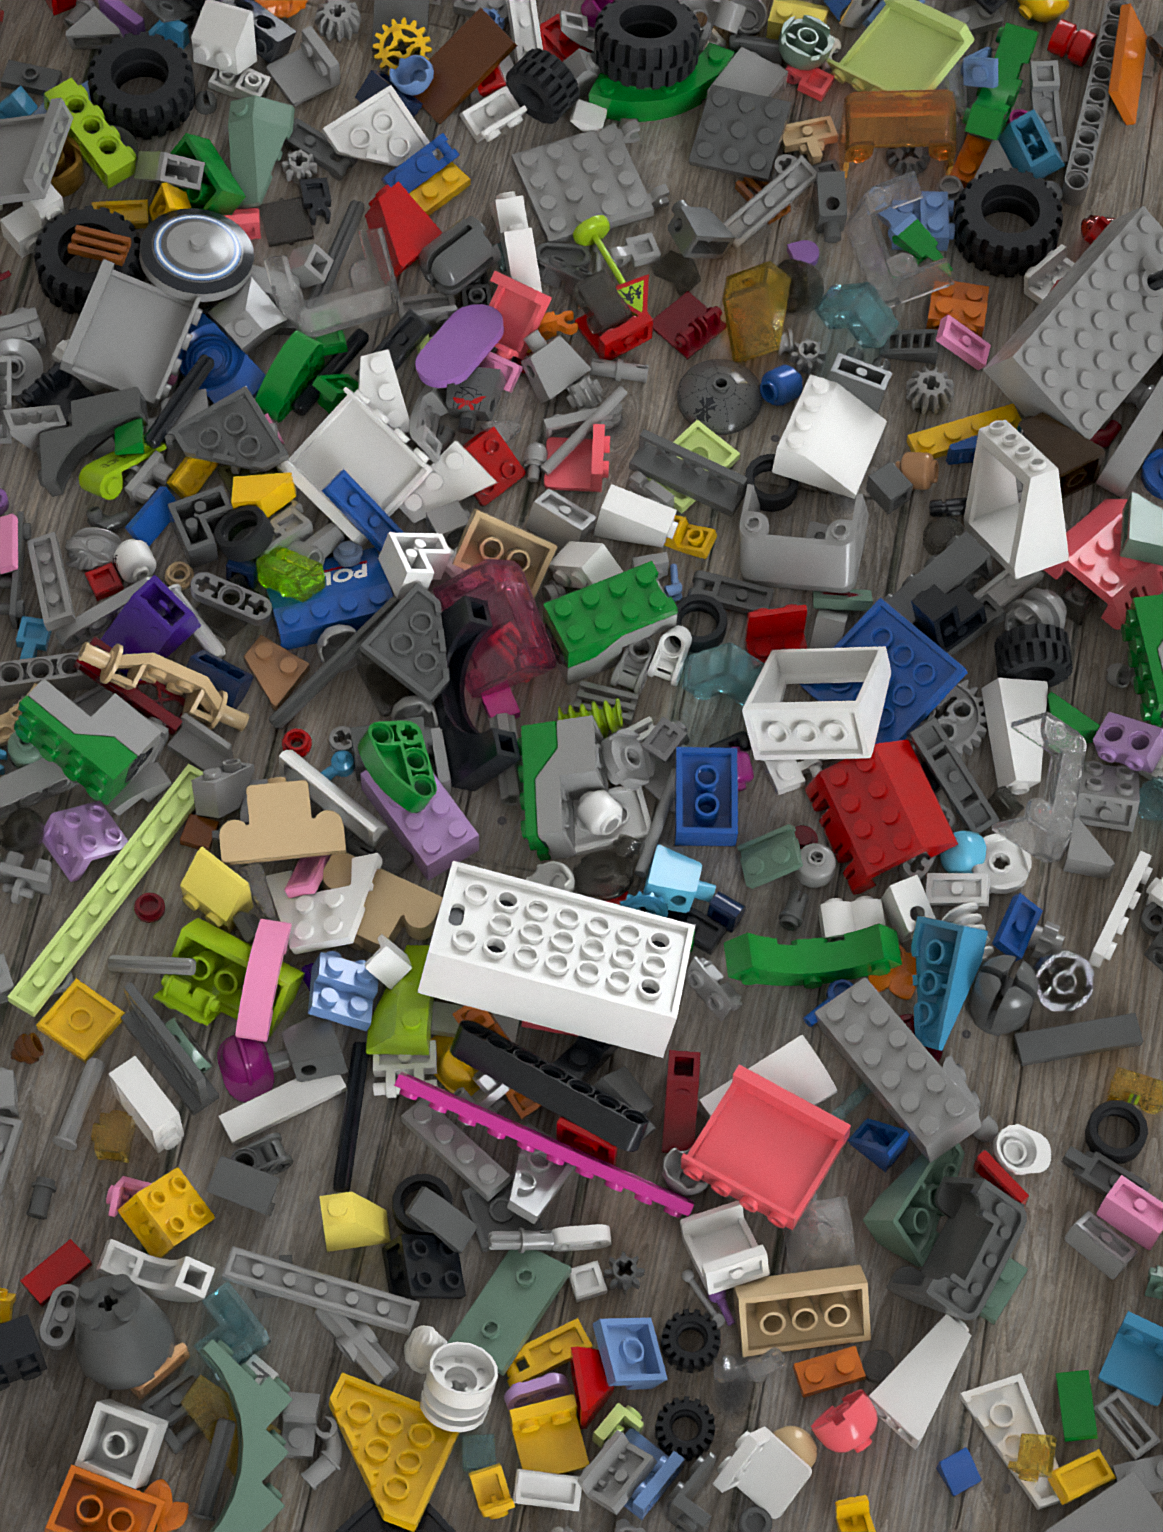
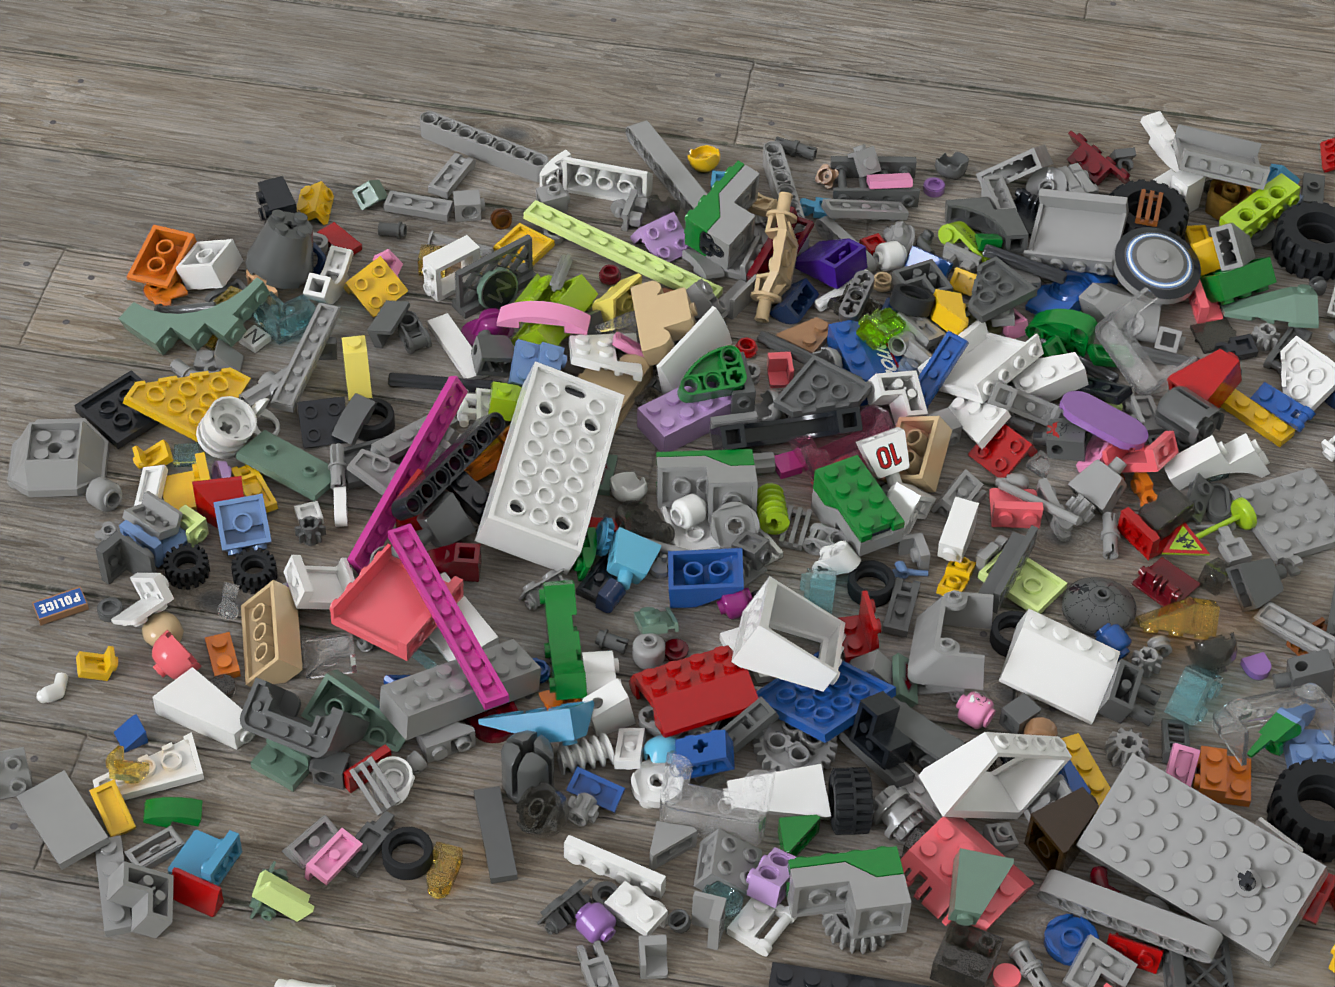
camera: 90 degrees right, 15 degrees down
(342, 702) = (780, 369): none -> coral panel
(530, 575) = (886, 454): none -> white torso
(809, 1075) = (448, 617): none -> dark pink plate
(886, 529) = (975, 710): none -> bright pink head
(988, 785) = (707, 752): none -> blue brick
(1054, 1155) = (362, 767): none -> light grey tile

